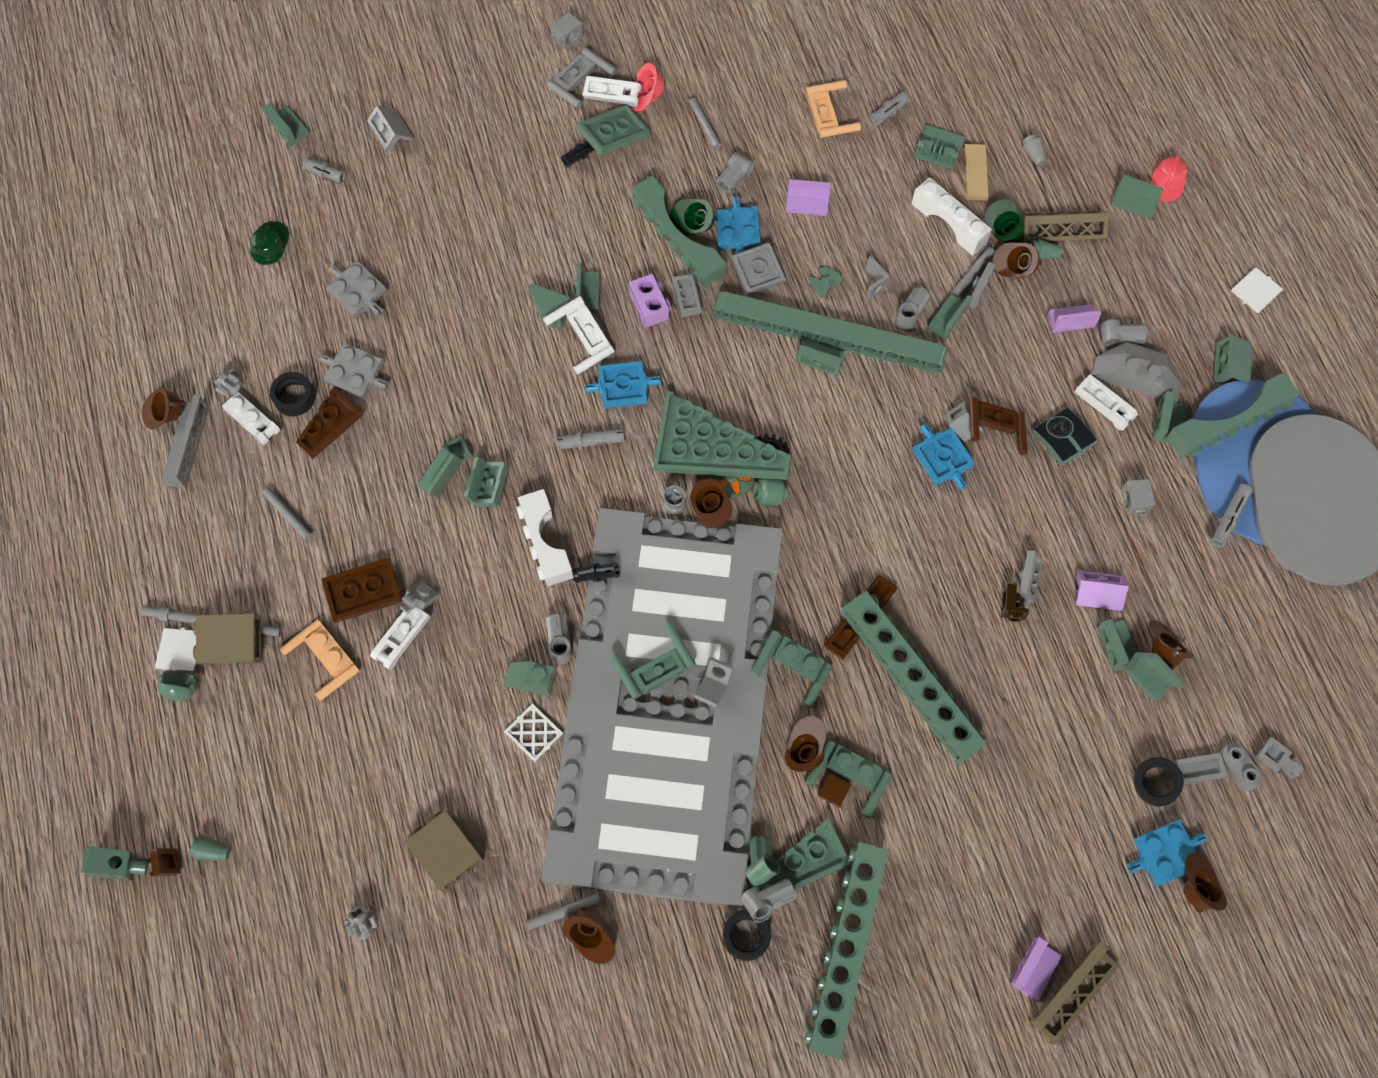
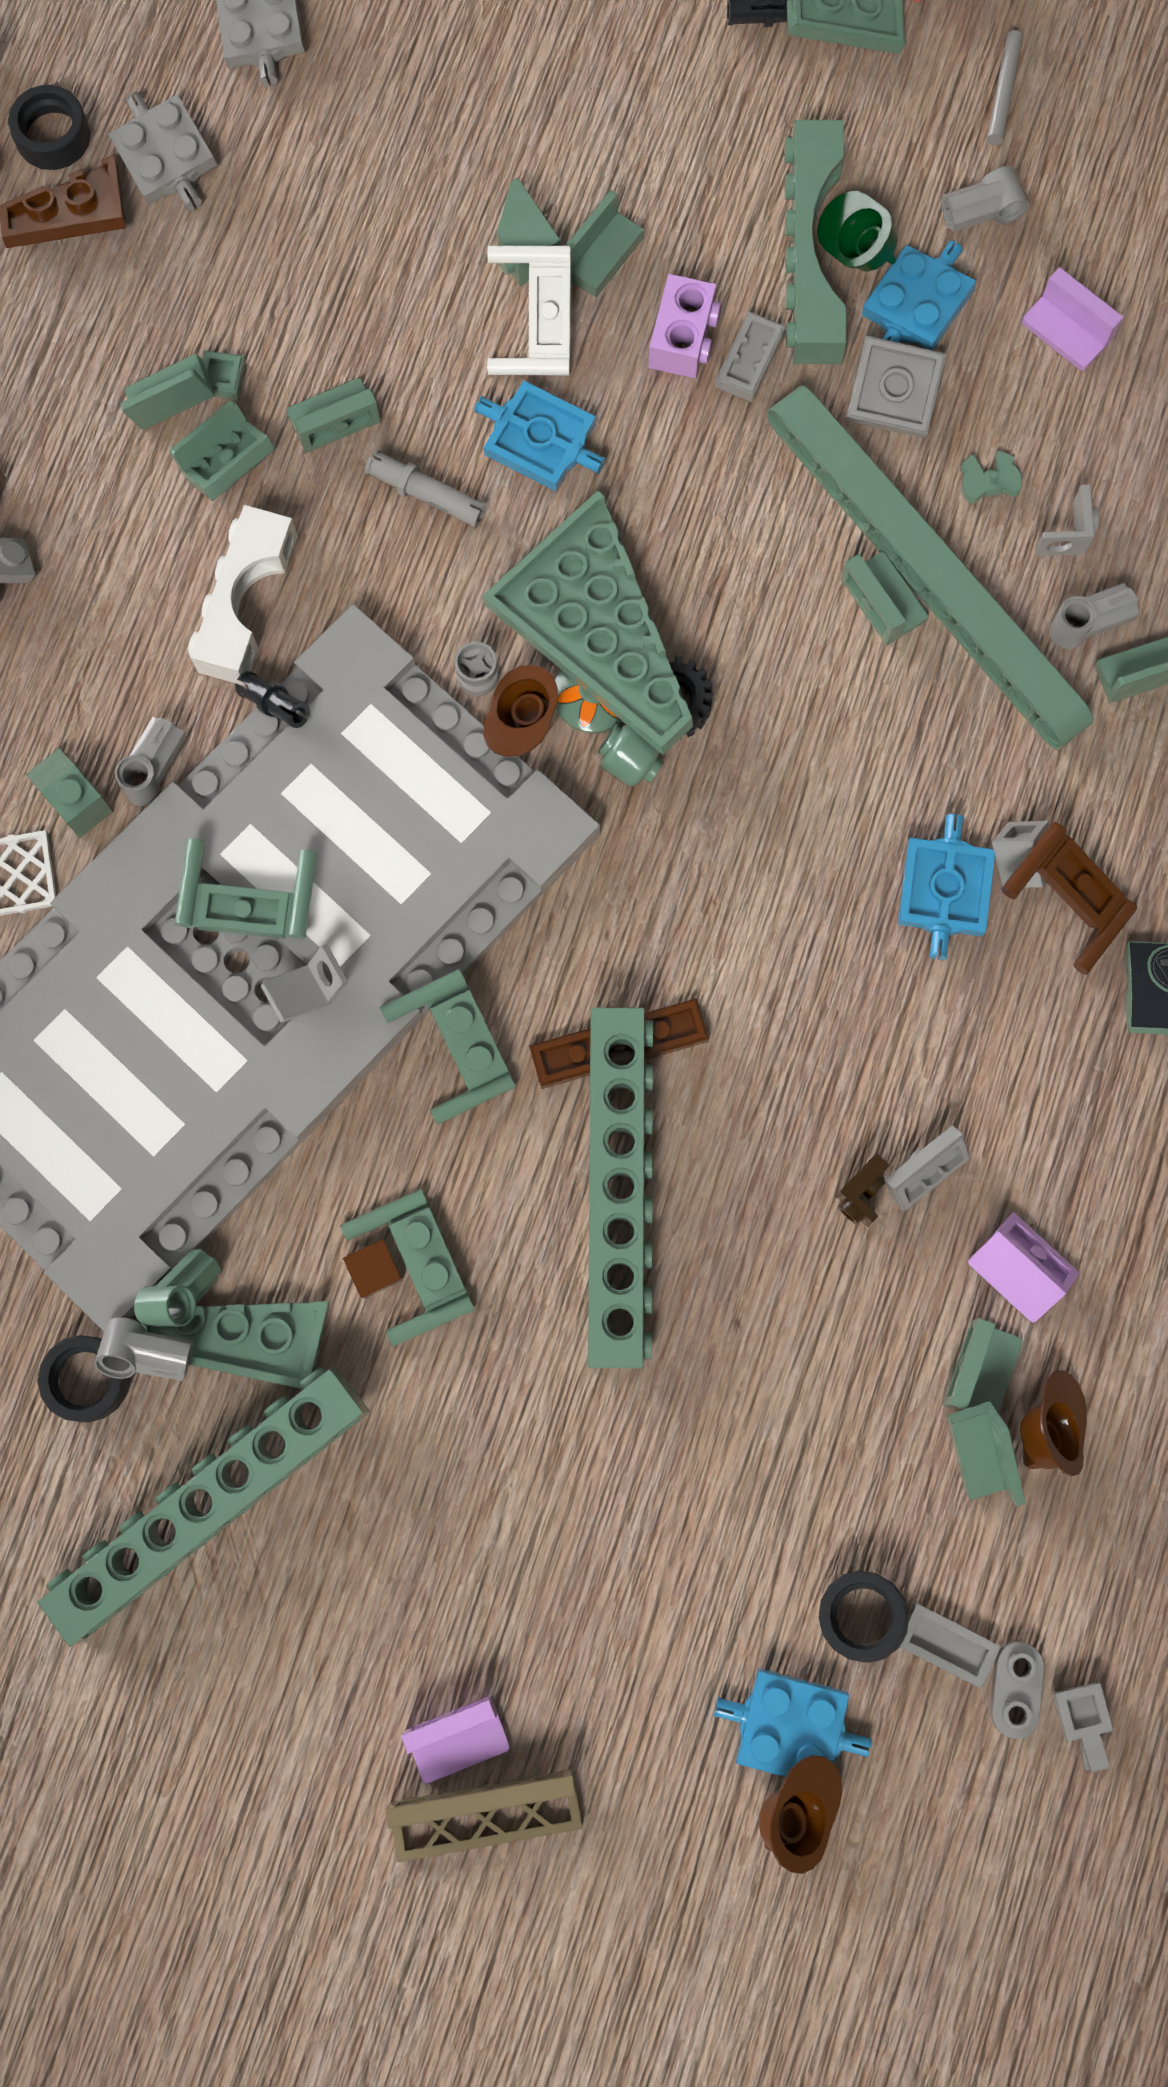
camera: 40 degrees right, 10 degrees up
(522, 434) = (333, 415): none -> sand green panel
(806, 745) = (375, 1176): reddish brown piece -> none

